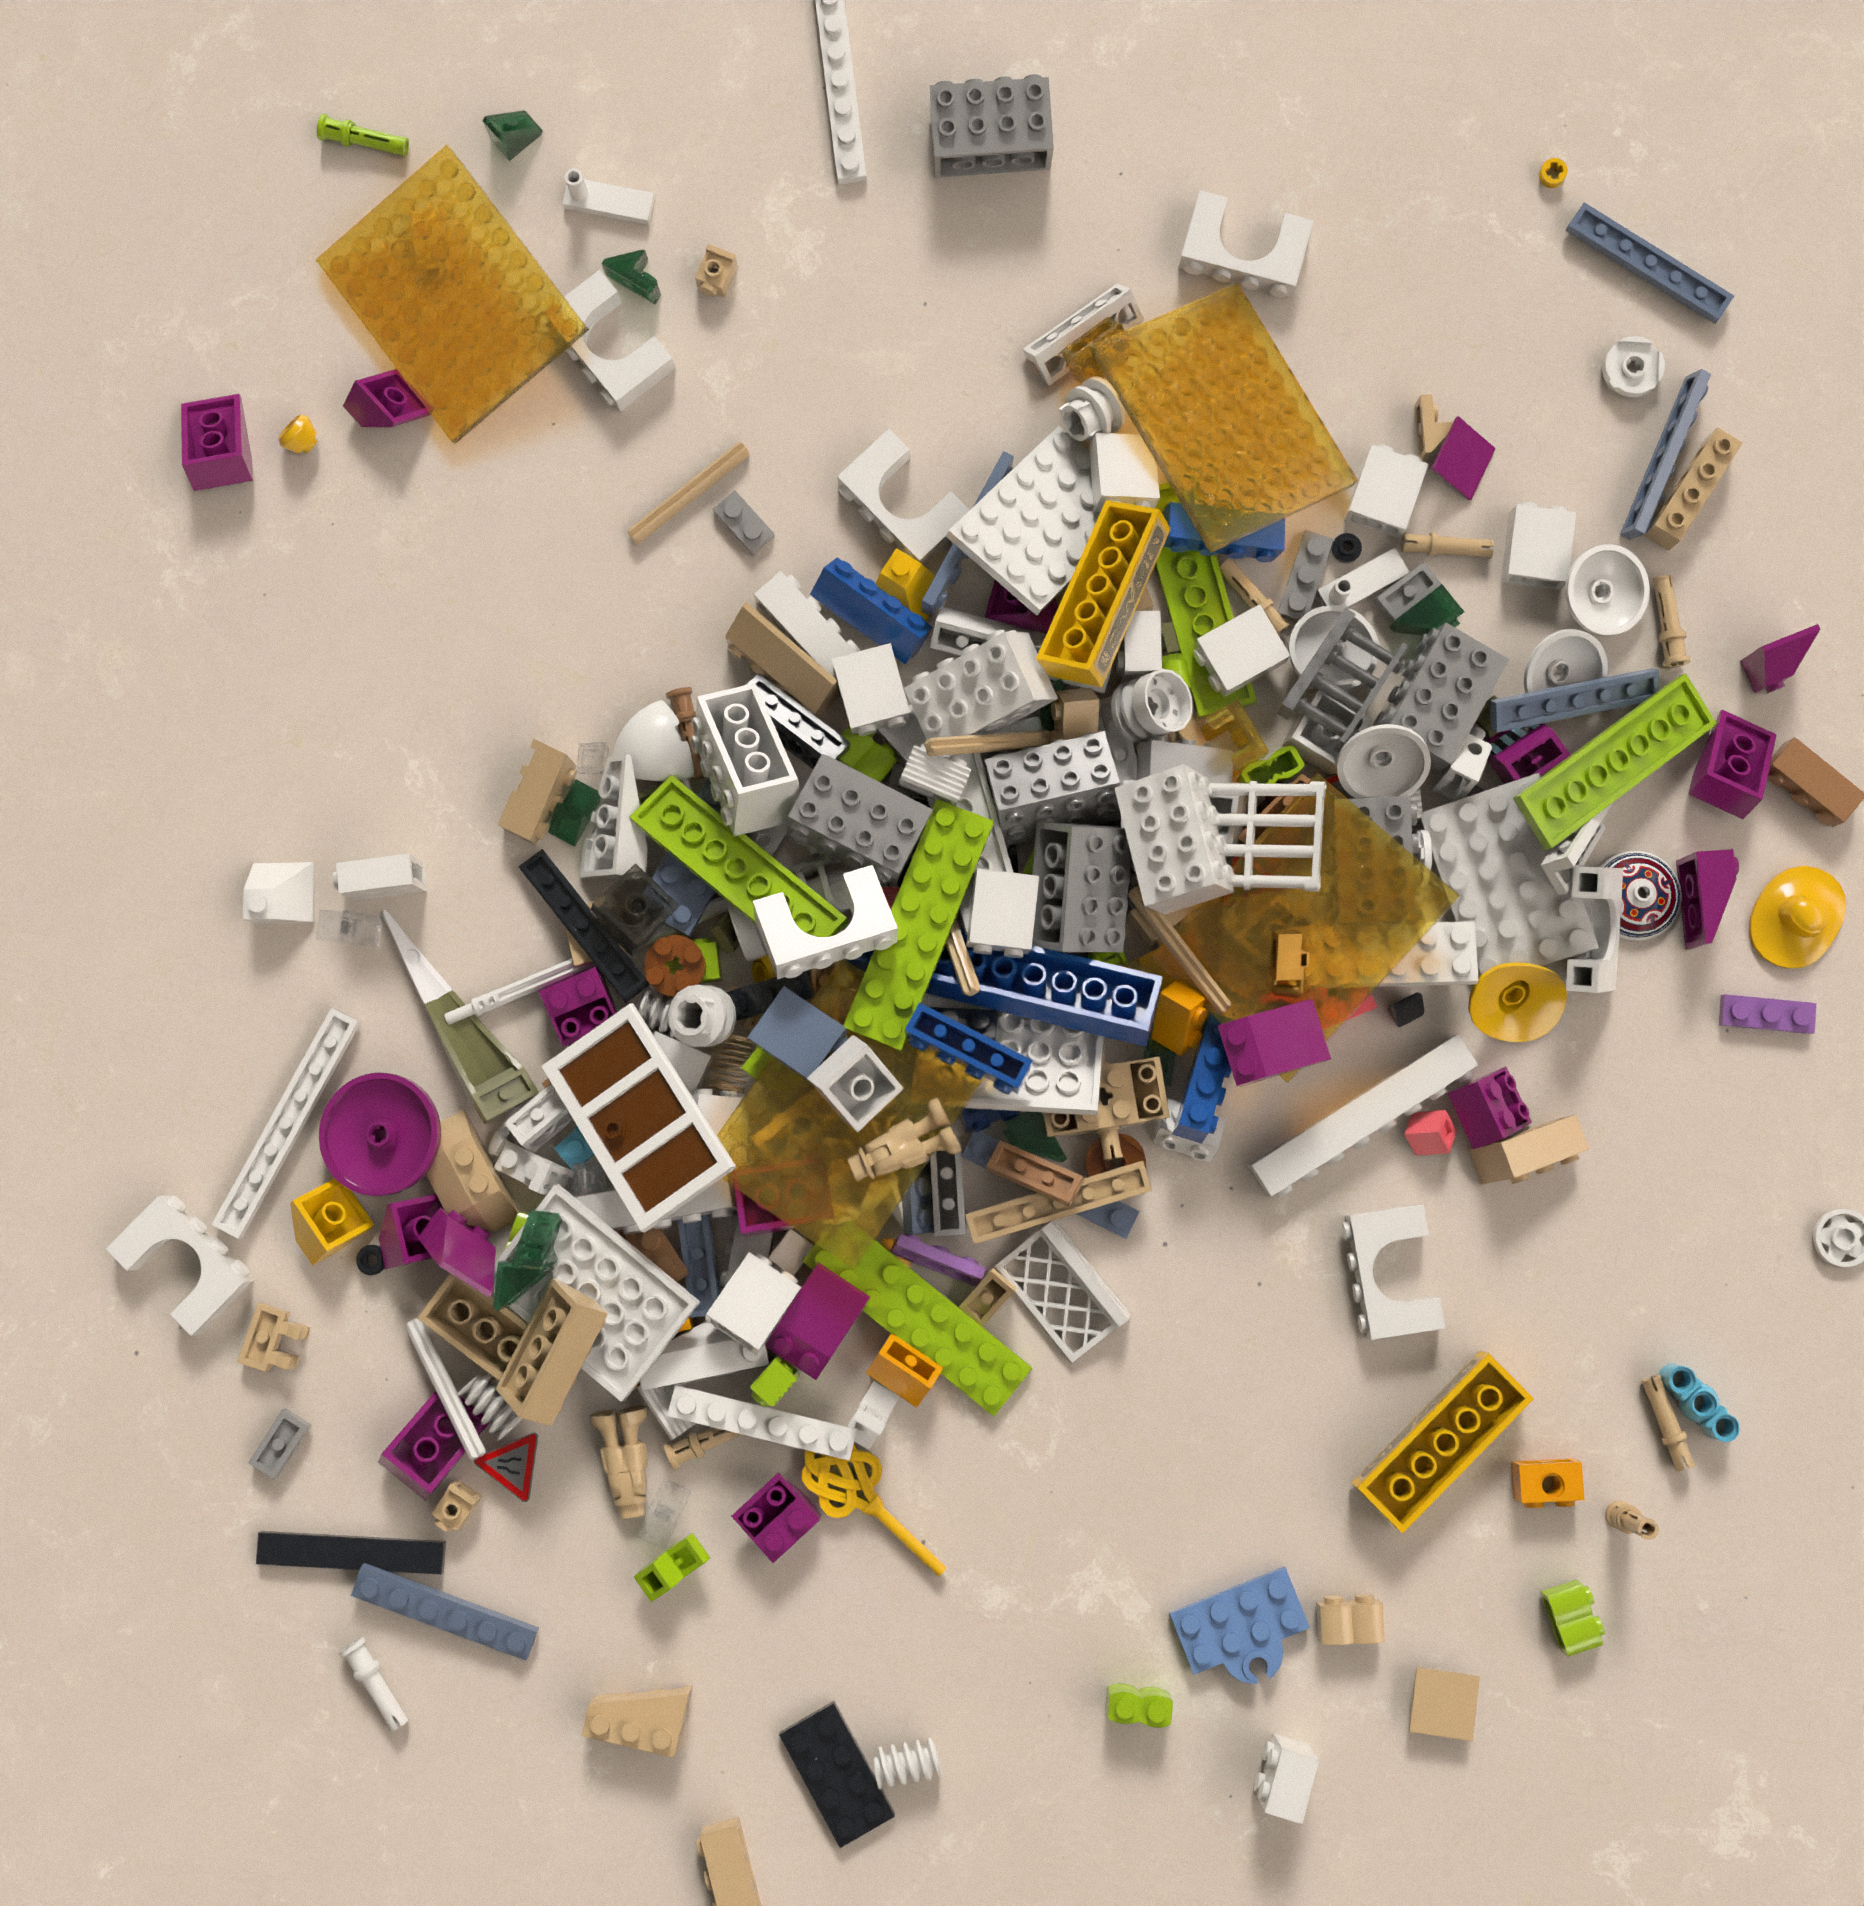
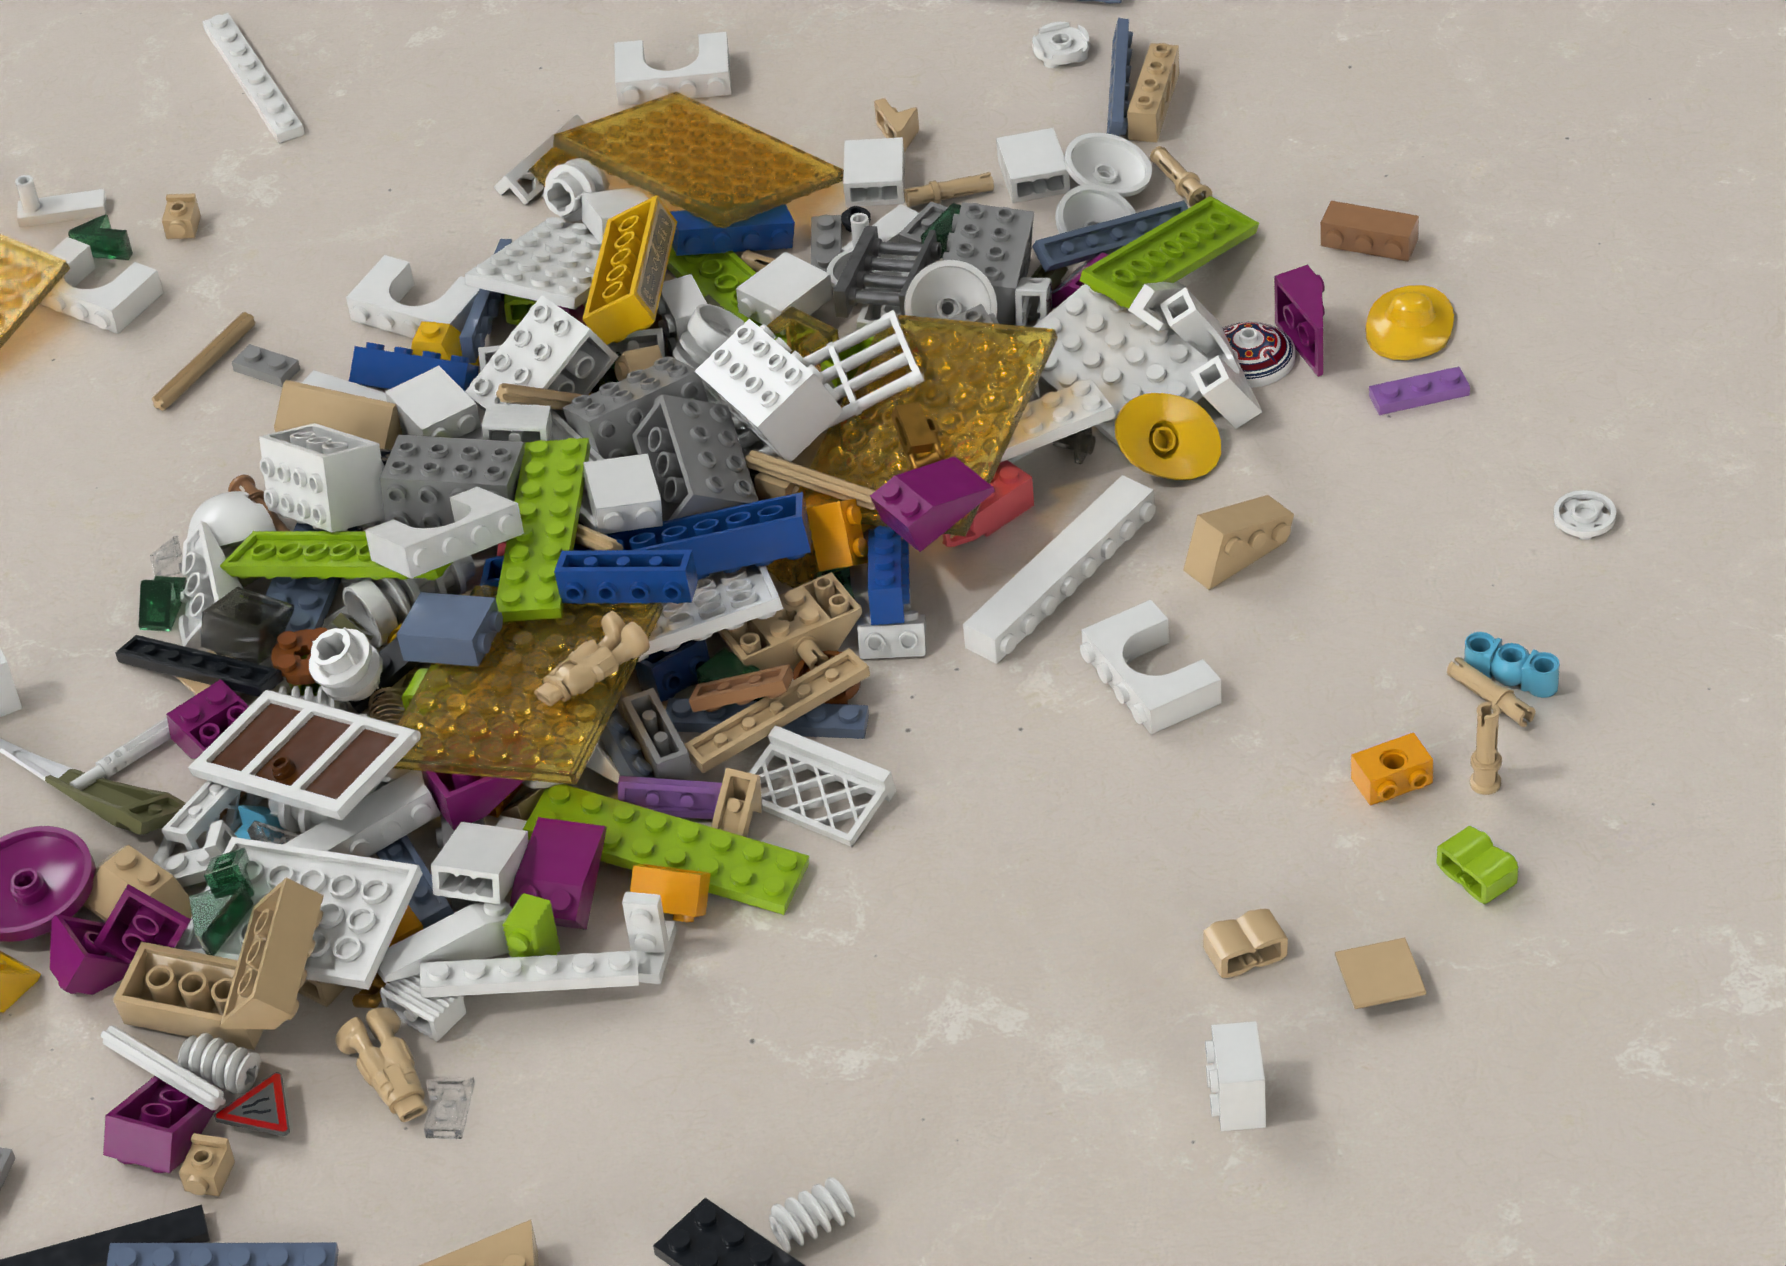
camera: 20 degrees left, 40 degrees down
(362, 1260) = (45, 997): black plate -> none
(538, 793) = (115, 597): tan wedge -> none
(671, 1567) = (474, 1134): lime brick -> none
(697, 1448) = (466, 1029): tan pin -> none
(777, 1517) = (578, 1053): magenta slope -> none
(855, 1083) = (519, 625): white brick -> none
(874, 1506) = (655, 1008): yellow piece -> none
(991, 126) = (406, 57): light grey brick -> none
(1148, 1705) = (1048, 1081): lime brick -> none
(1241, 1625) = (1131, 990): medium blue plate -> none
(1407, 1009) = (1067, 485): black slope -> none
(1430, 1132) = (1135, 560): coral panel -> none
(1442, 1441) = (1262, 767): yellow brick -> none
(1463, 458) = (935, 131): magenta piece -> none
(1490, 1108) = (1171, 518): magenta slope -> none
(1733, 765) = (1288, 244): magenta slope -> none
(1778, 660) = (1285, 160): magenta slope -> none

